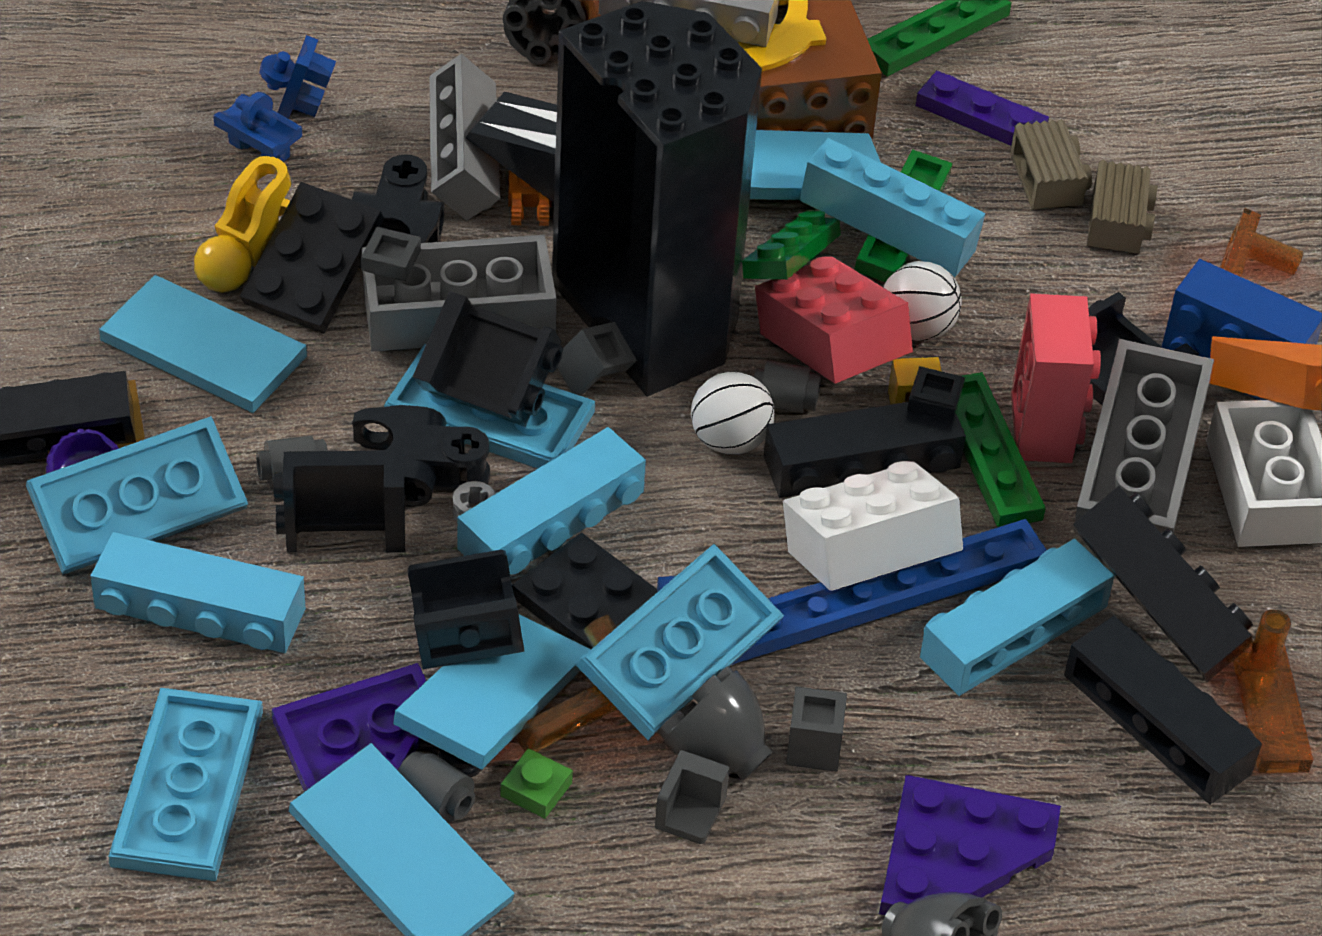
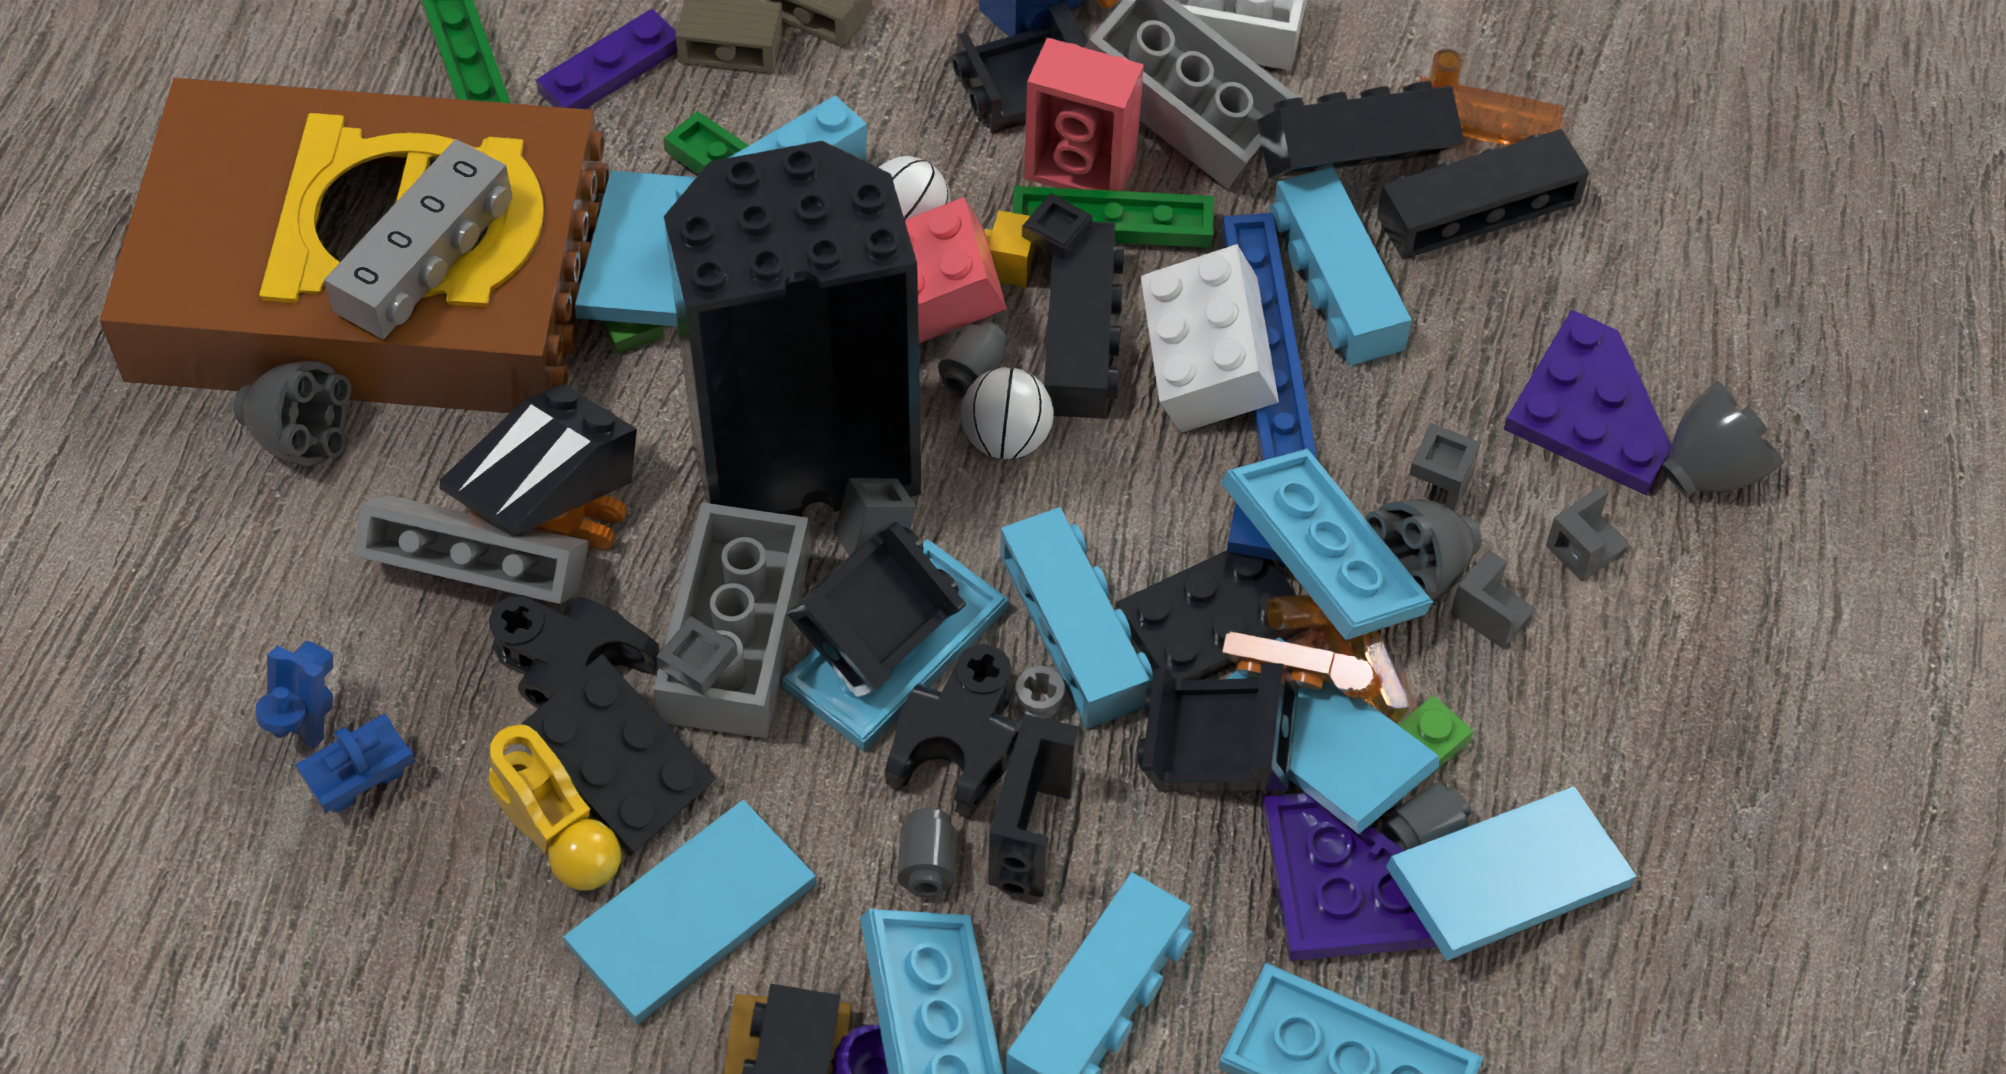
camera: 70 degrees left, 10 degrees up
(546, 648) = (1306, 664): none -> hinge
(798, 859) = (1584, 537): none -> dark grey panel

